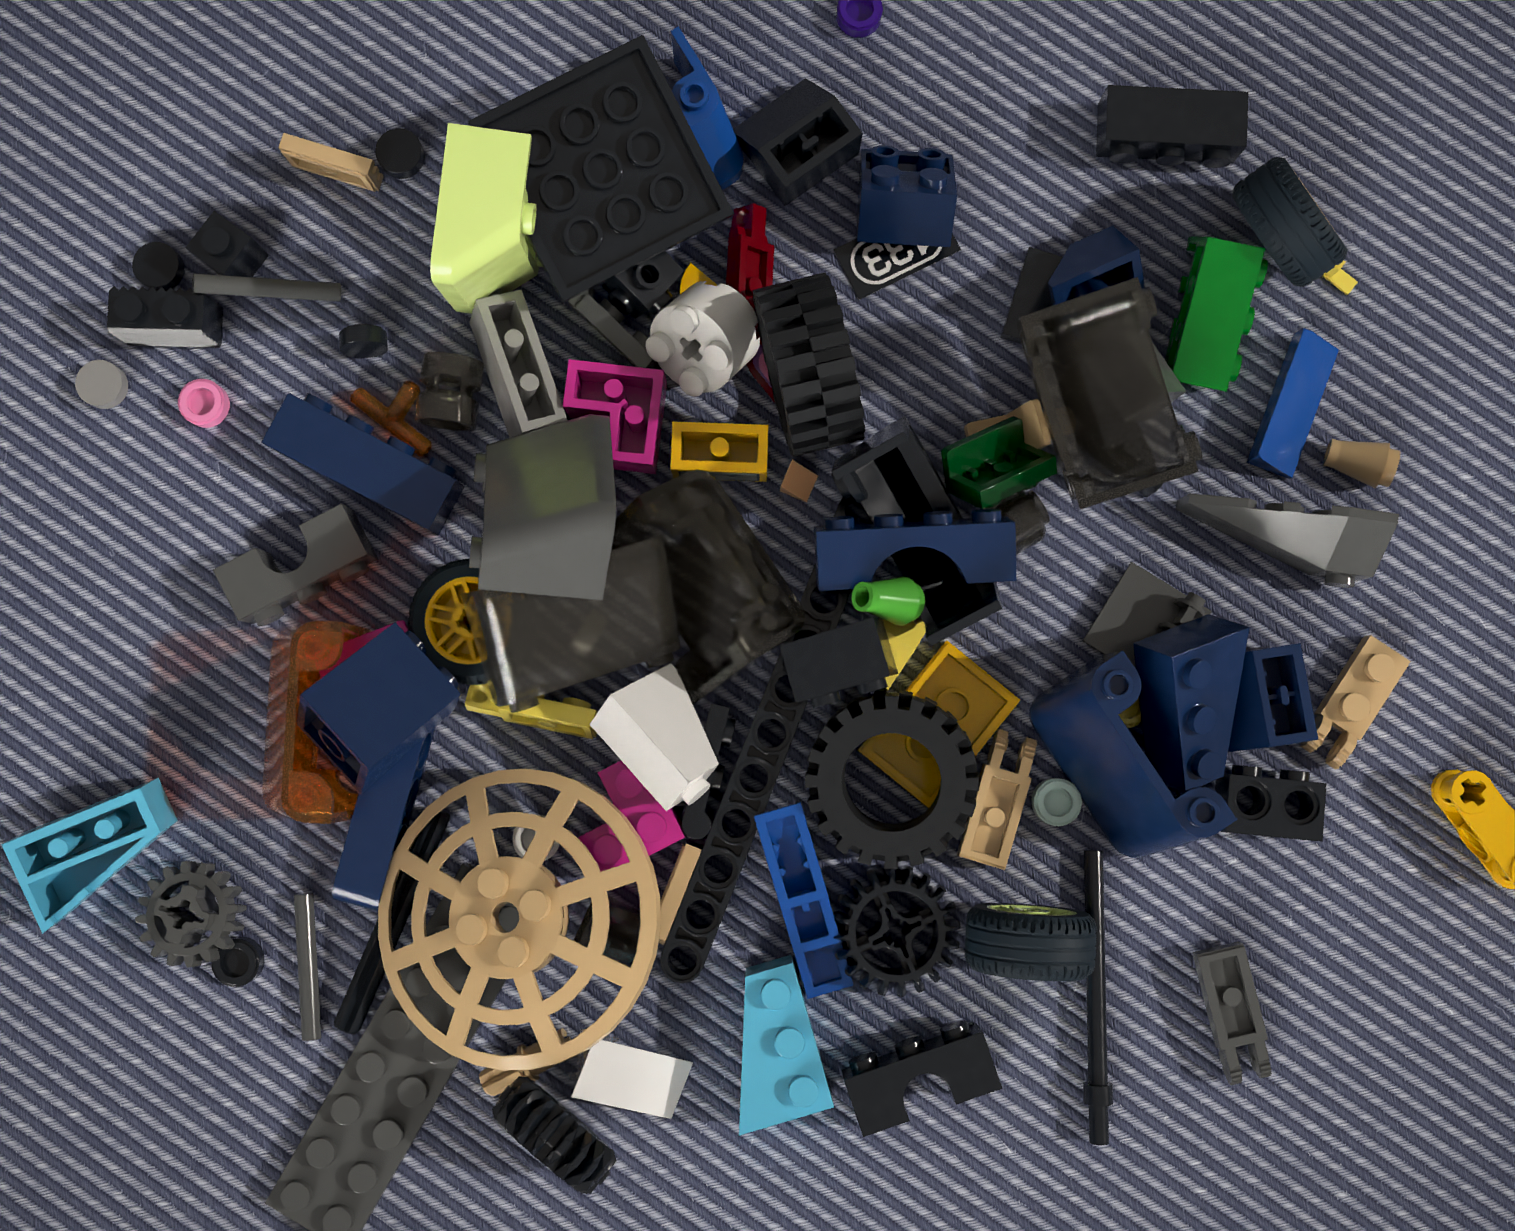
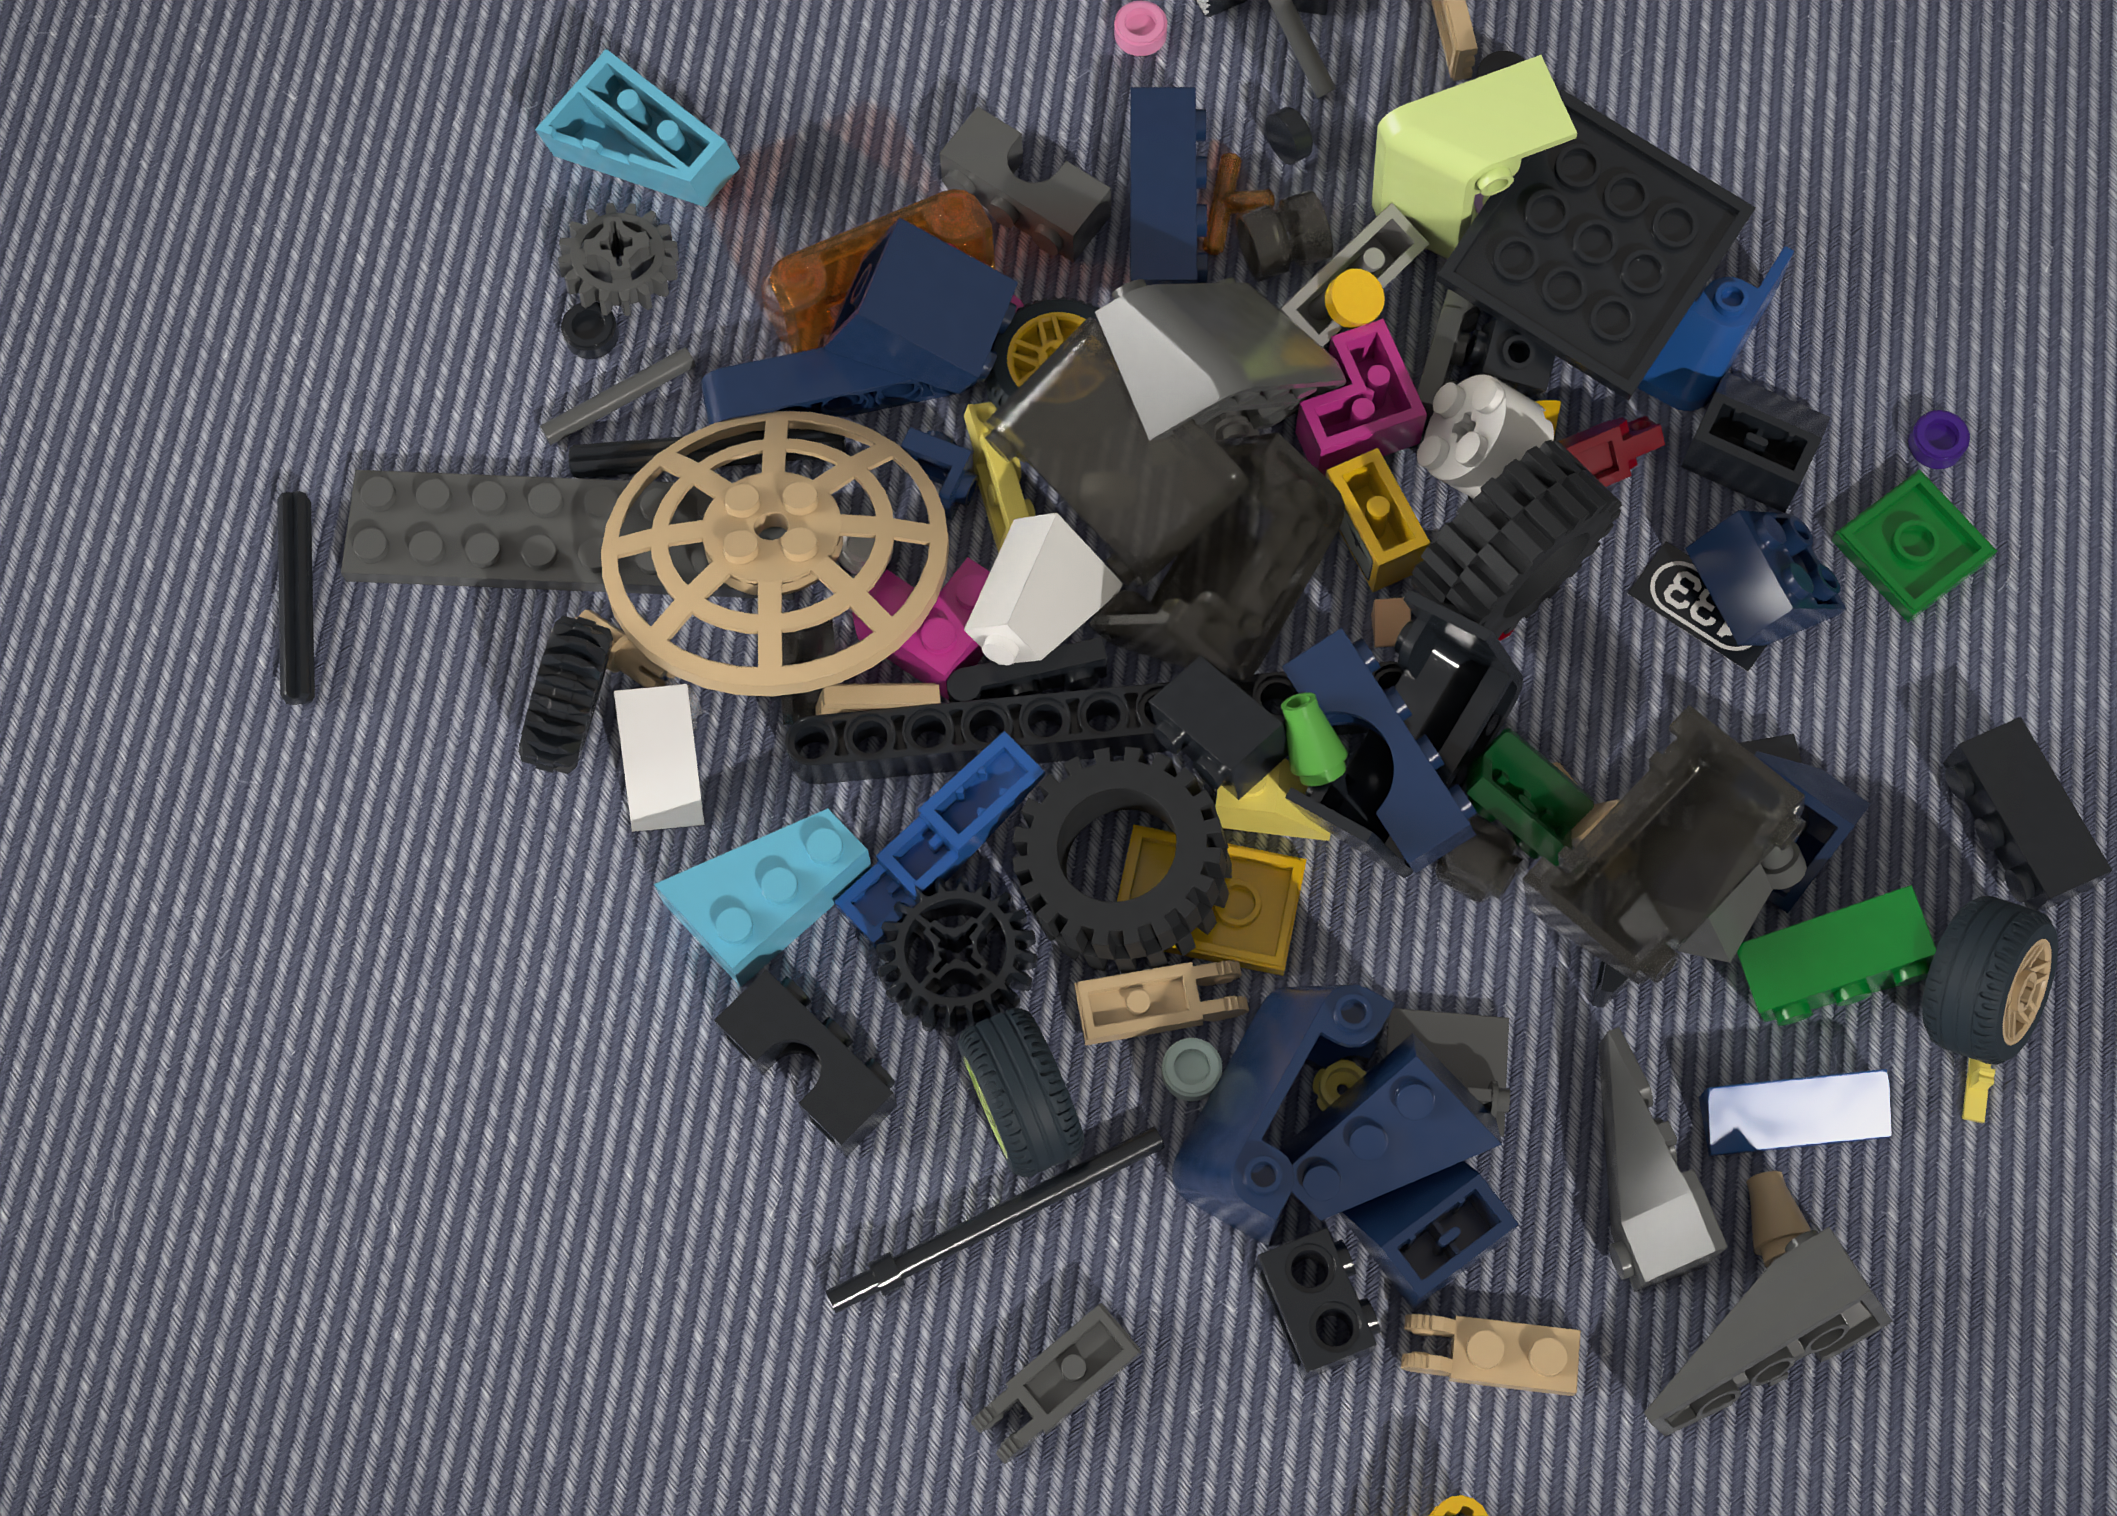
camera: 65 degrees right, 15 degrees down
(493, 747) = (944, 464): none -> dark blue bracket
(542, 372) = (1354, 298): none -> yellow tile
(930, 78) = (1913, 545): none -> green tile
(1443, 485) = (1797, 1307): none -> dark grey wedge

